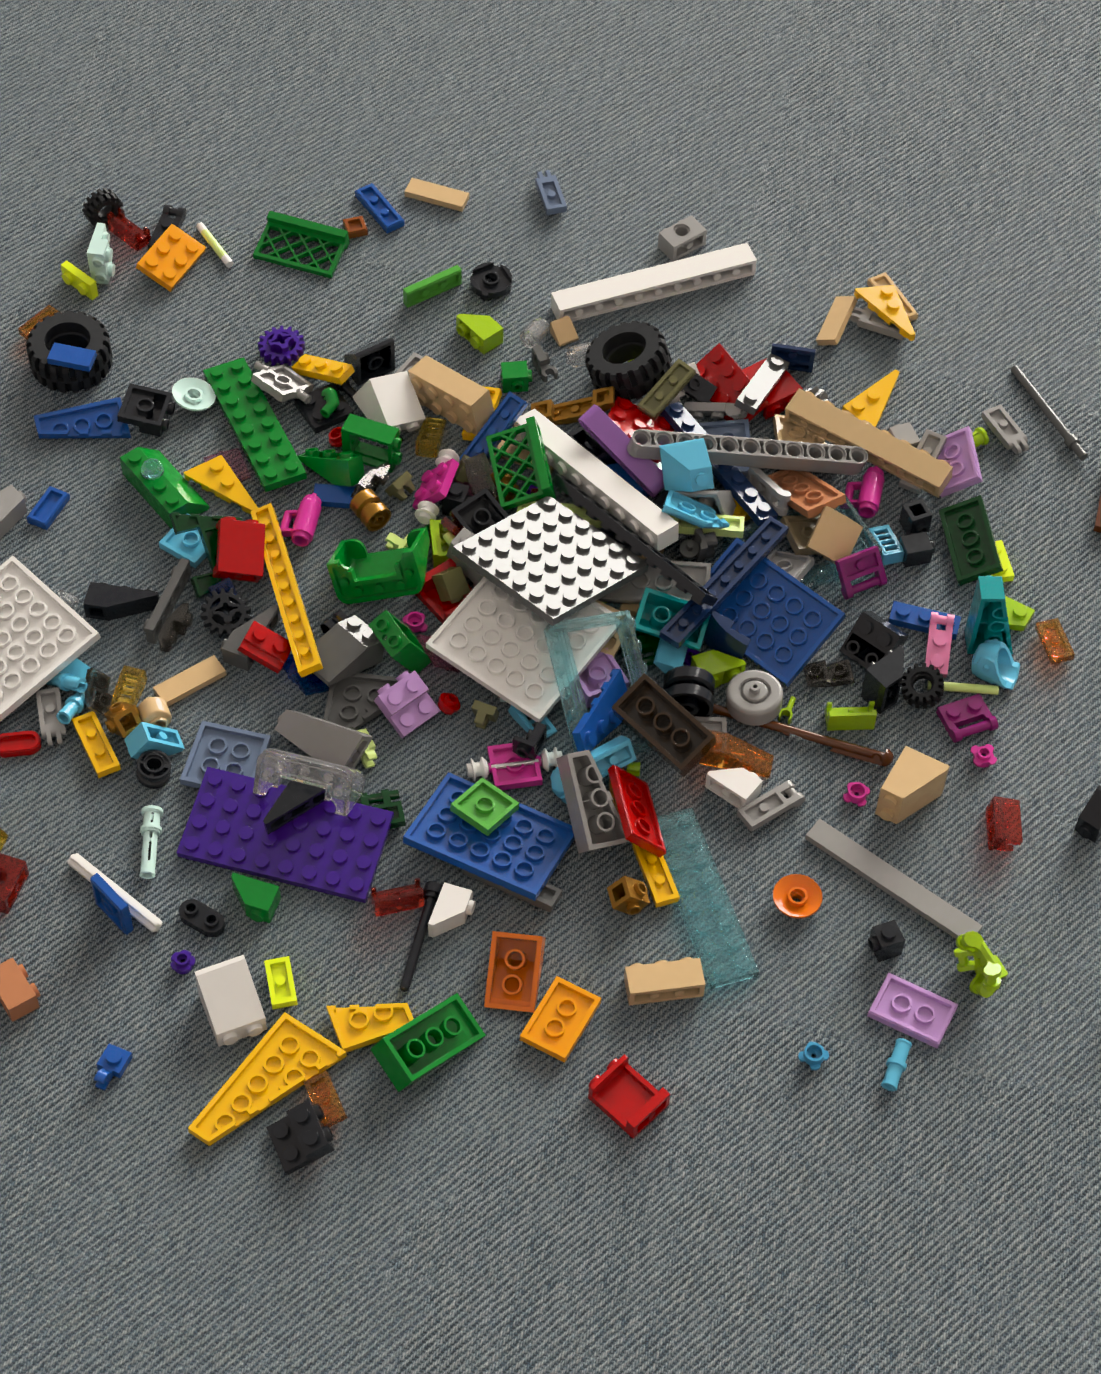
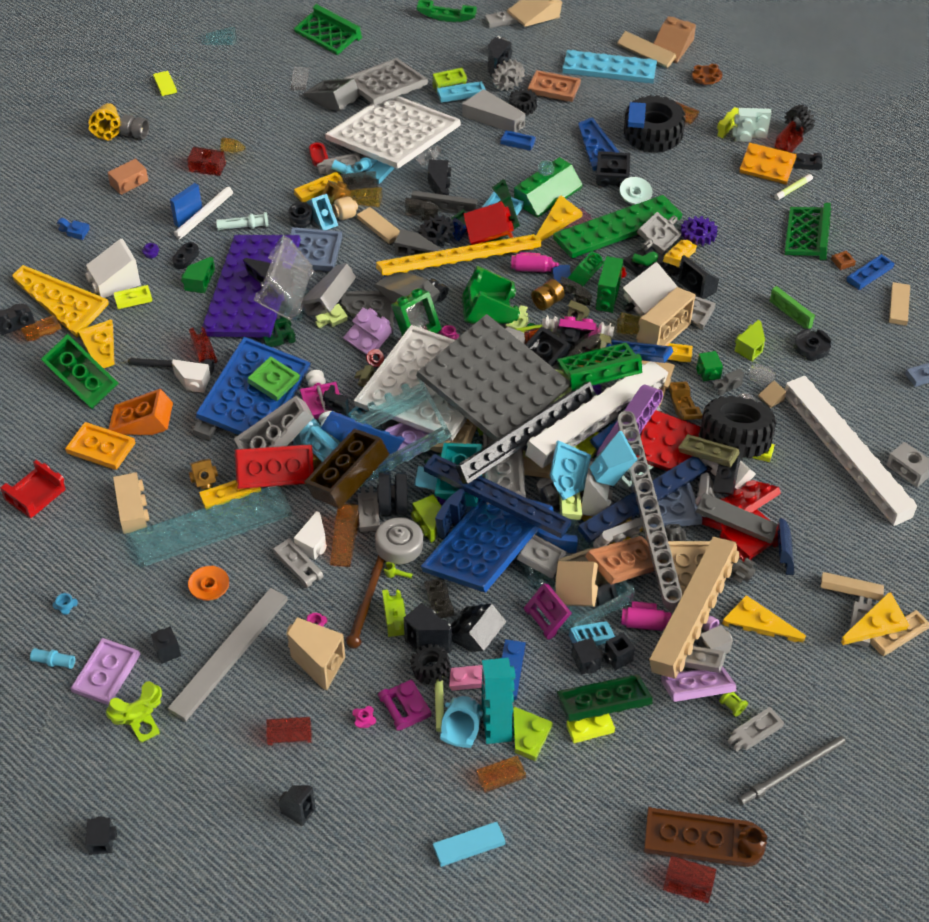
camera: 85 degrees right, 5 degrees down
(265, 647) = (405, 245): red plate -> none

